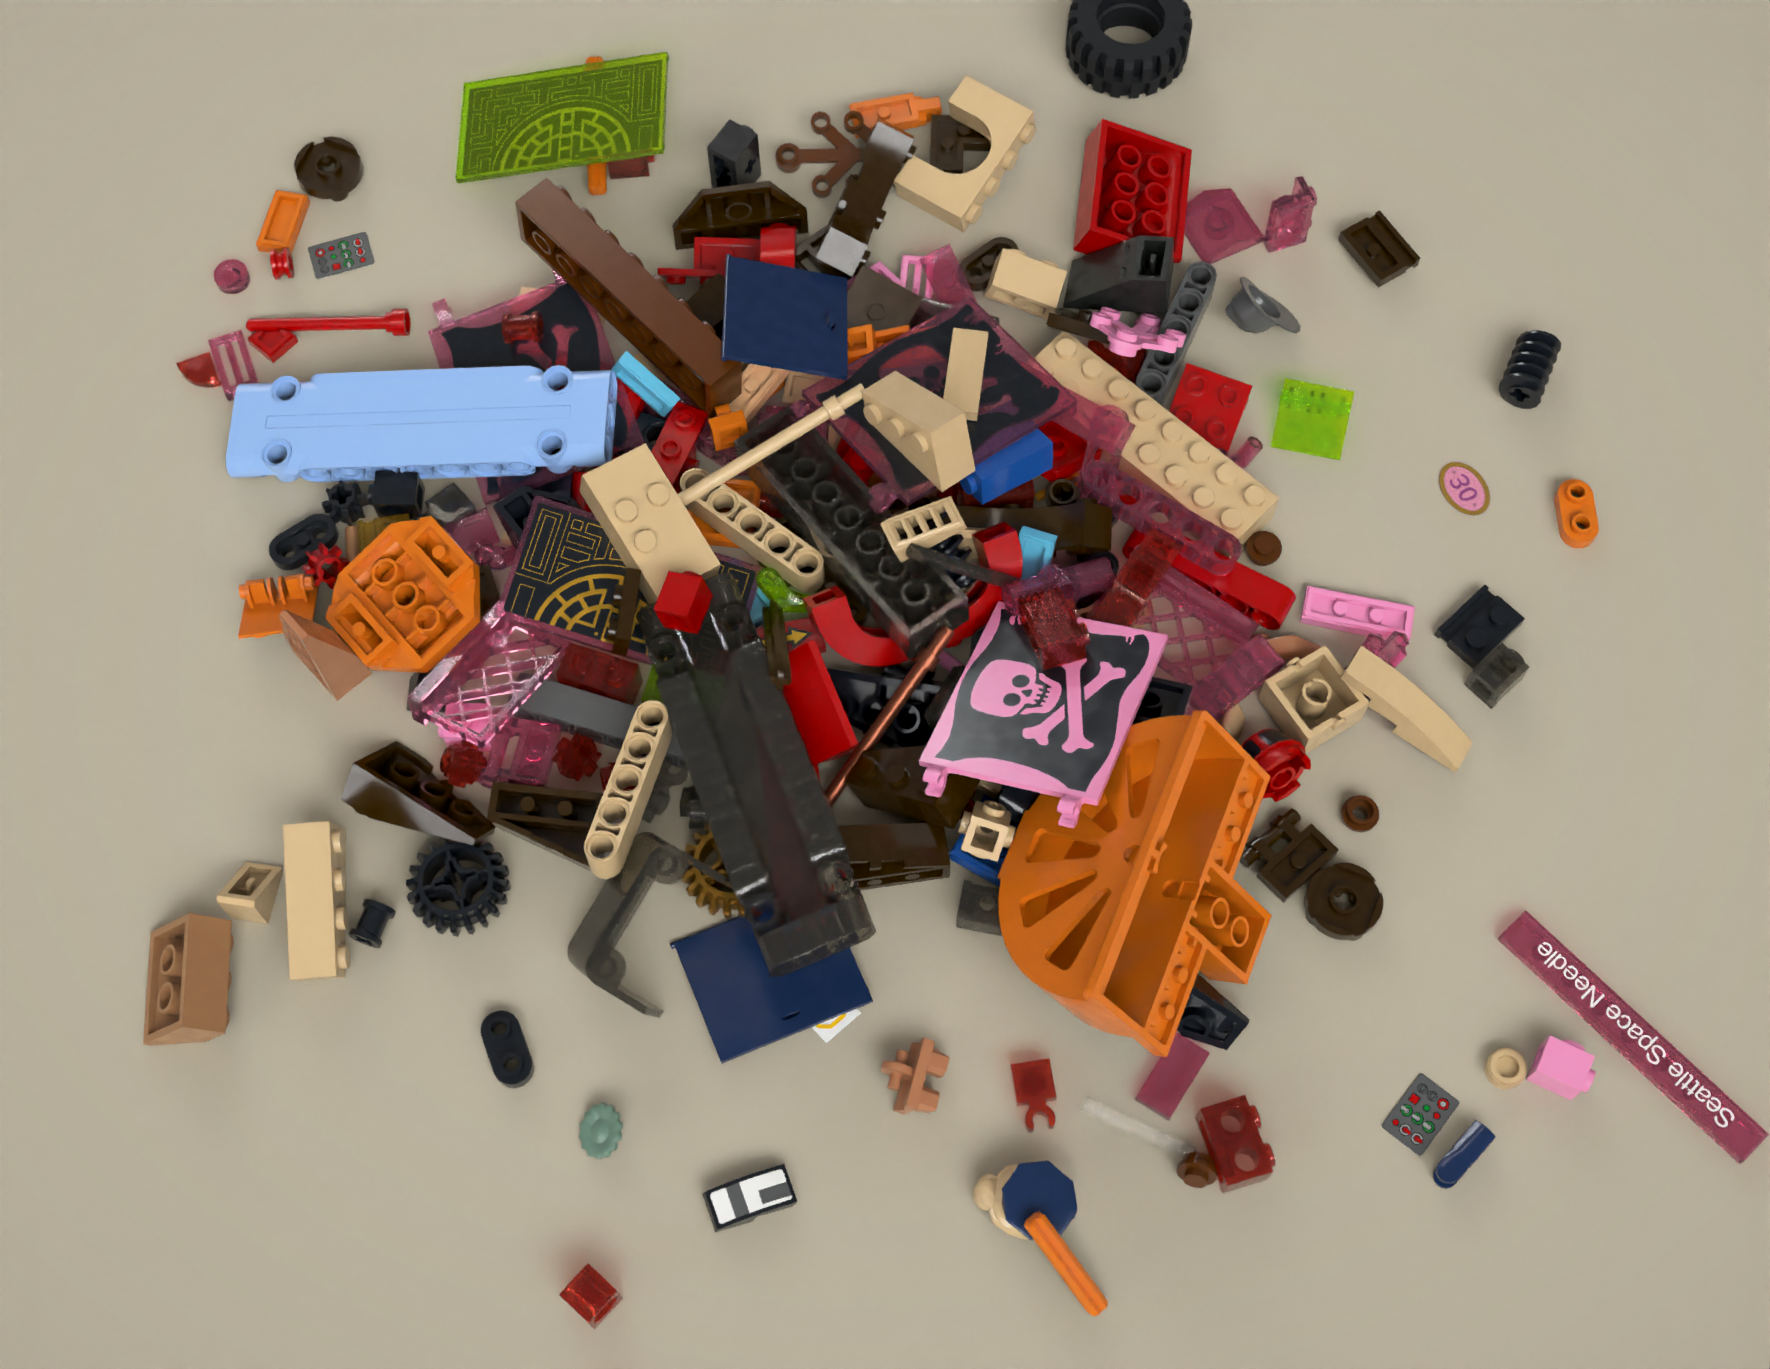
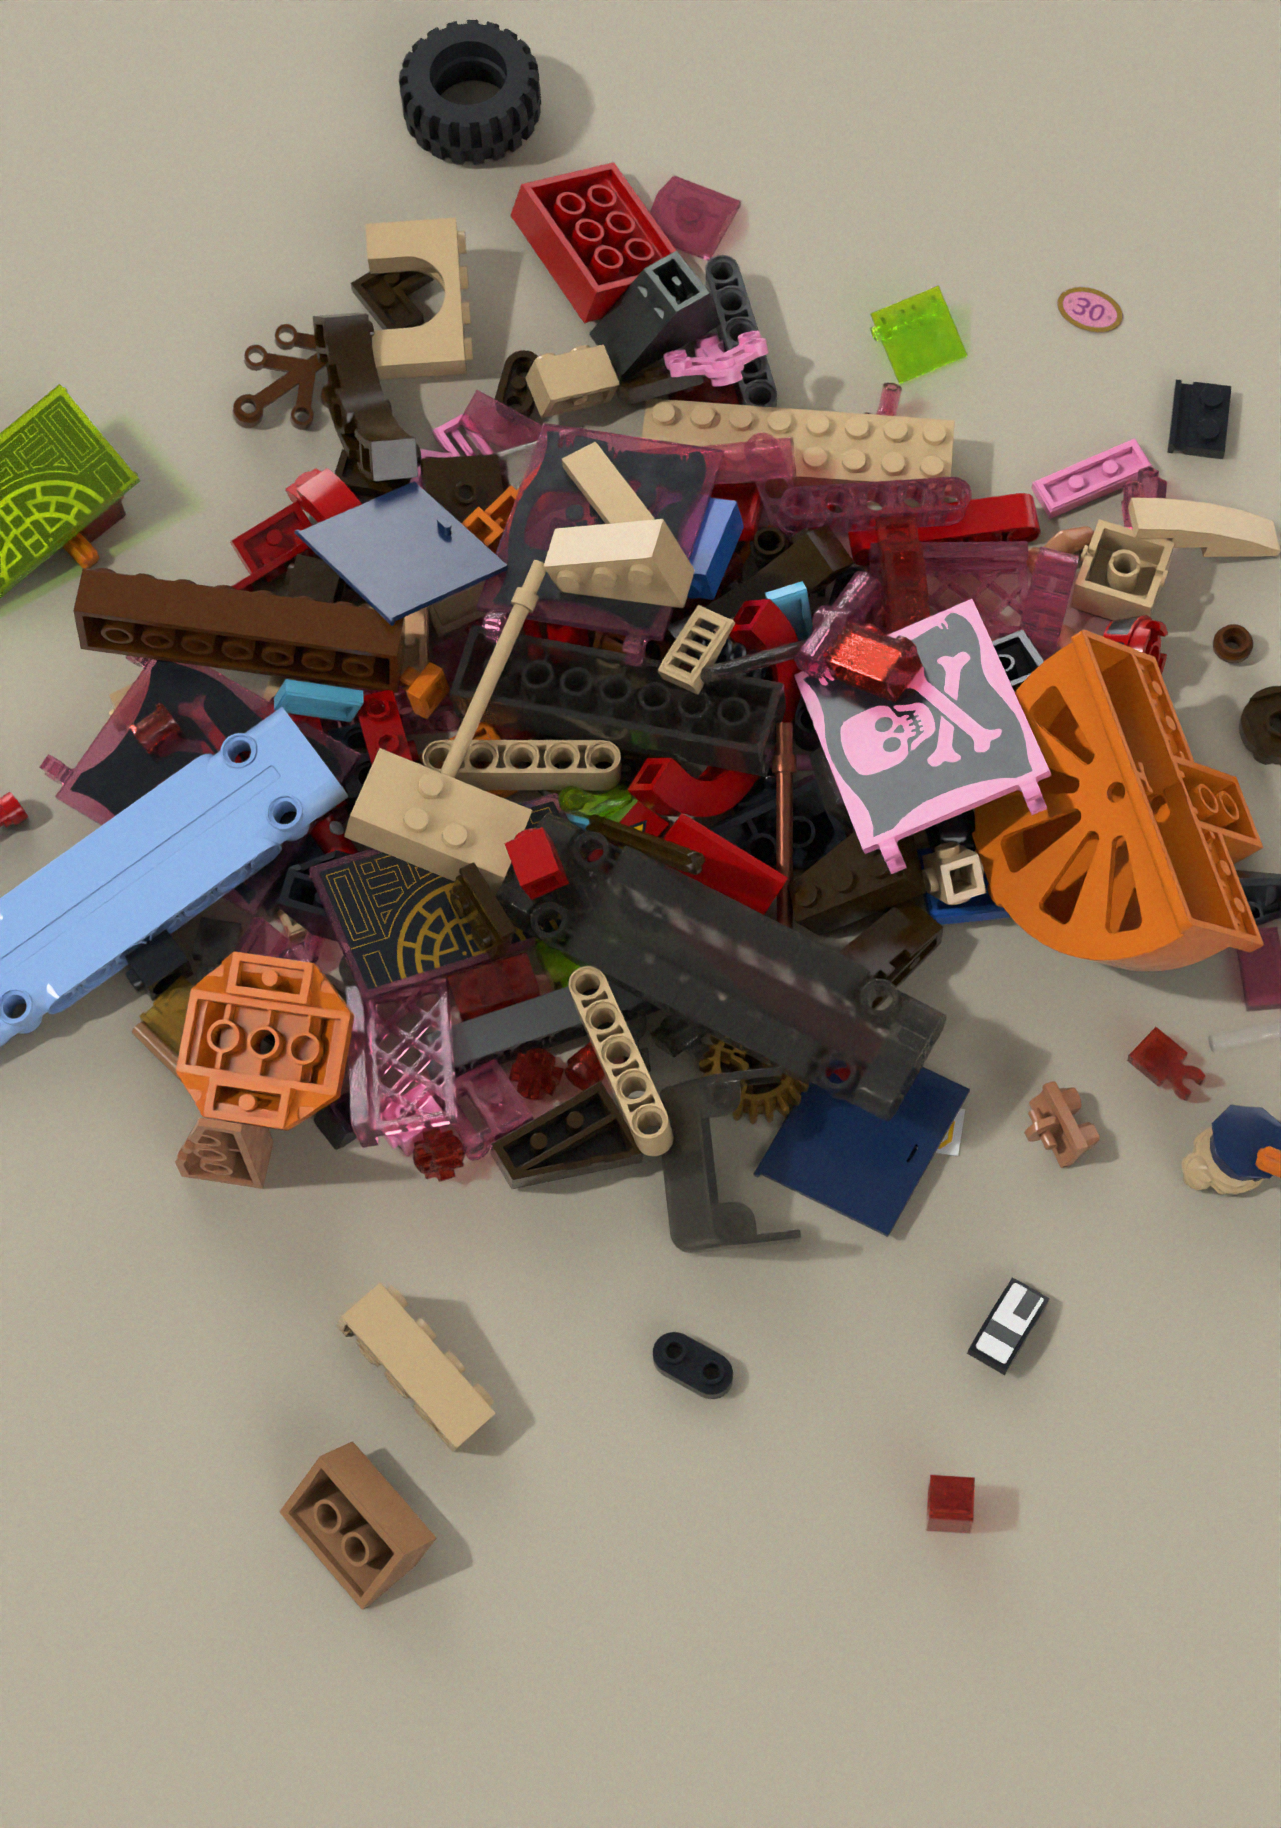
camera: 35 degrees left, 0 degrees up
(251, 892) = (345, 1405): tan slope -> none
(265, 603) = (140, 1144): orange hinge -> none
(302, 539) = (105, 1072): black plate -> none
(321, 556) = (149, 1075): red gear -> none
(345, 503) = (119, 999): black gear -> none
(372, 923) = (479, 1350): black bush -> none
(402, 791) = (402, 1221): dark brown wedge -> none
(443, 889) = (518, 1275): black gear -> none
(600, 1130) = (836, 1368): sand green piece -> none
(734, 156) = (208, 444): black brick -> none
(737, 213) = (252, 492): dark brown wedge -> none
(900, 110) = (315, 298): orange hinge -> none
(972, 916) = (994, 957): clear smoke brick -> none
(1210, 404) = (821, 379): red hinge -> none
(1258, 312) = (795, 271): dark grey piece -> none
(1263, 548) = (972, 471): reddish brown plate -> none
(1290, 217) = (756, 165): clear pink bracket -> none
(1293, 864) = (1216, 720): dark brown plate -> none
(1379, 248) = (849, 145): dark brown plate -> none
(1496, 675) = (1249, 449): clear smoke brick -> none
(1529, 368) = (1064, 168): black piece -> none
(1576, 510) = (1195, 268): orange plate -> none

